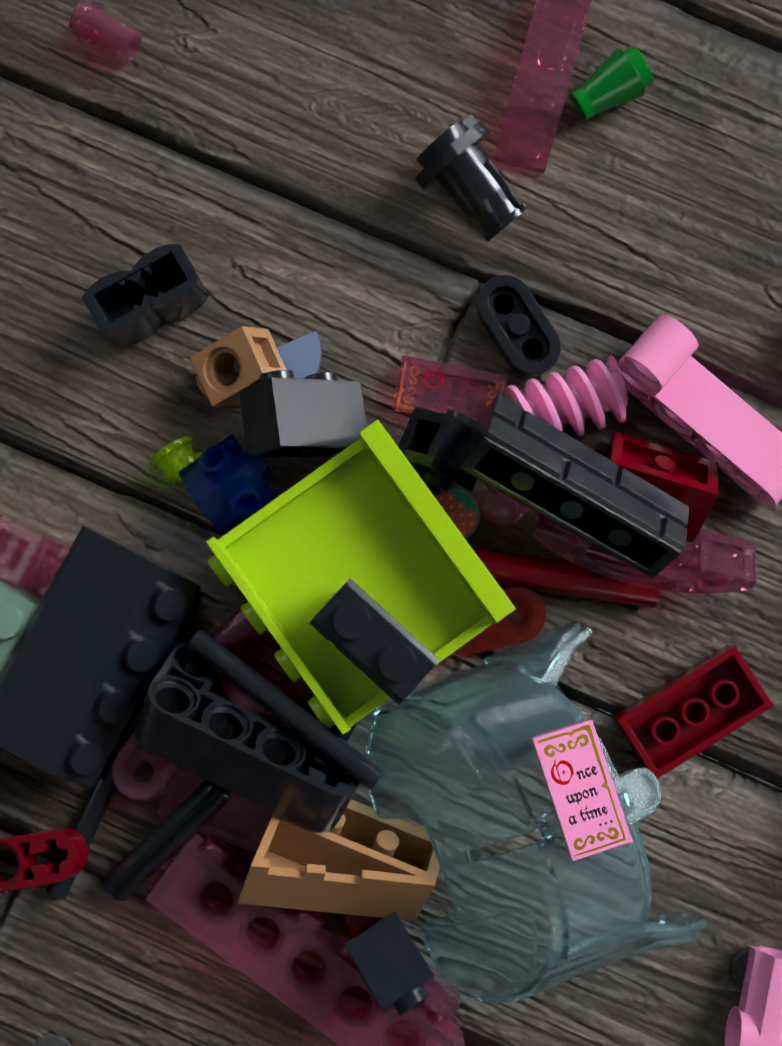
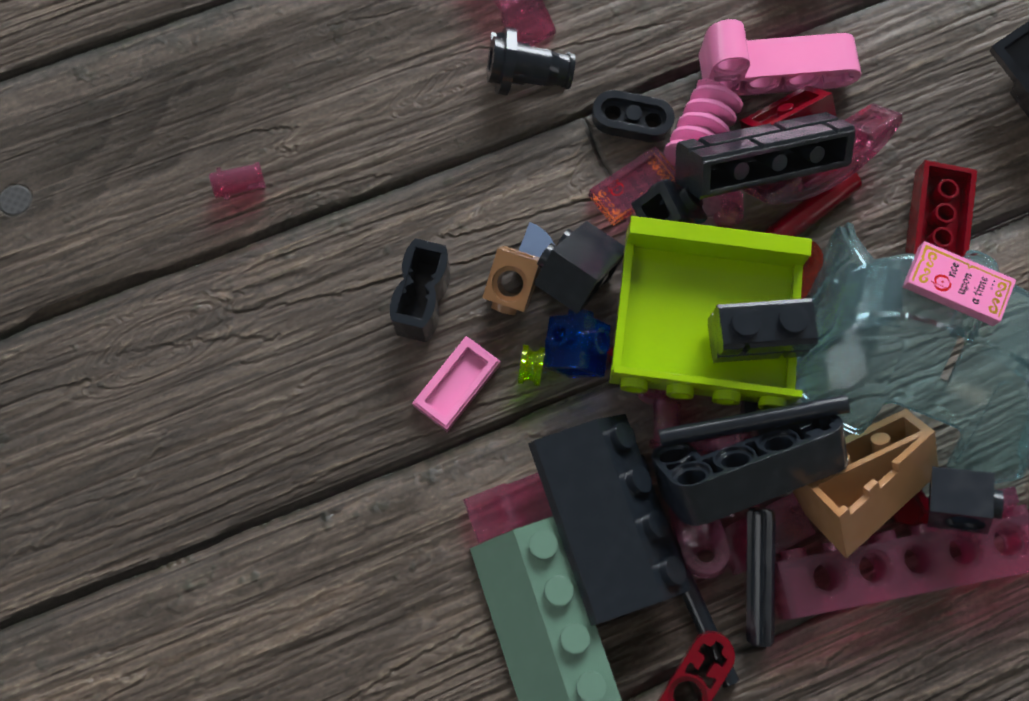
camera: 50 degrees left, 10 degrees down
(103, 410) = (456, 383): none -> bright pink tile

